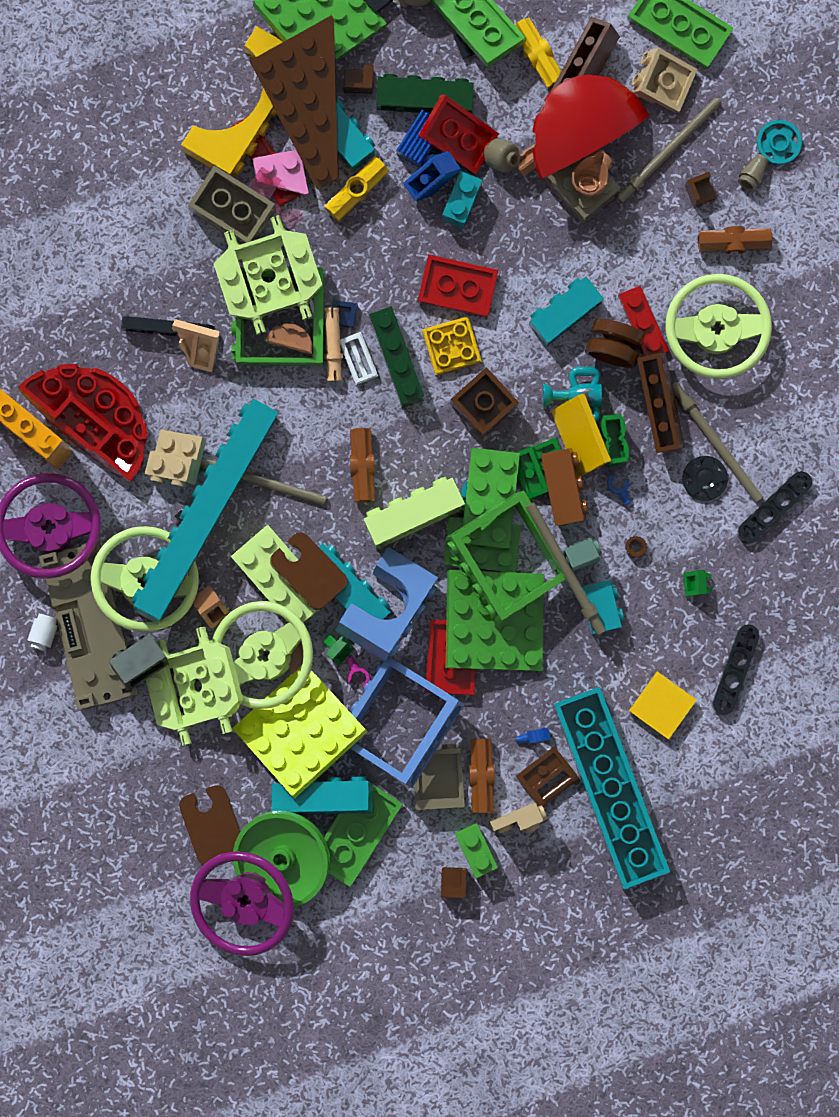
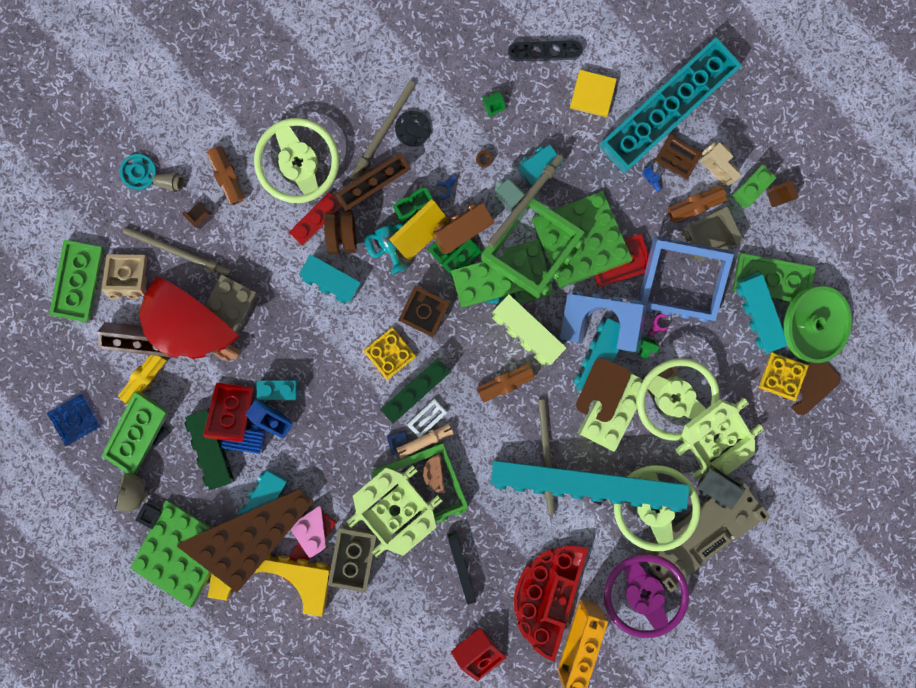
camera: 105 degrees left, 5 degrees up
(42, 632) = (721, 565): white brick -> none
(58, 306) = (478, 654): none -> red slope
(176, 458) = (557, 521): tan plate -> none
(198, 344) = (466, 540): light nougat wing -> none
(210, 607) = (655, 451): nougat brick -> none
(230, 895) = (856, 339): magenta piece -> none
(235, 796) = (783, 376): none -> yellow tile
(265, 183) = (325, 541): clear pink plate -> none
(301, 735) = (723, 344): neon yellow plate -> none
(346, 200) = (289, 467): yellow piece -> none
(359, 80) = (217, 502): reddish brown panel -> none
(457, 286) = (343, 366): red plate -> none
(502, 155) = (232, 373): dark tan head -> none
(591, 174) = (219, 299): nougat hair -> none
(776, 509) = (415, 66): black beam -> none

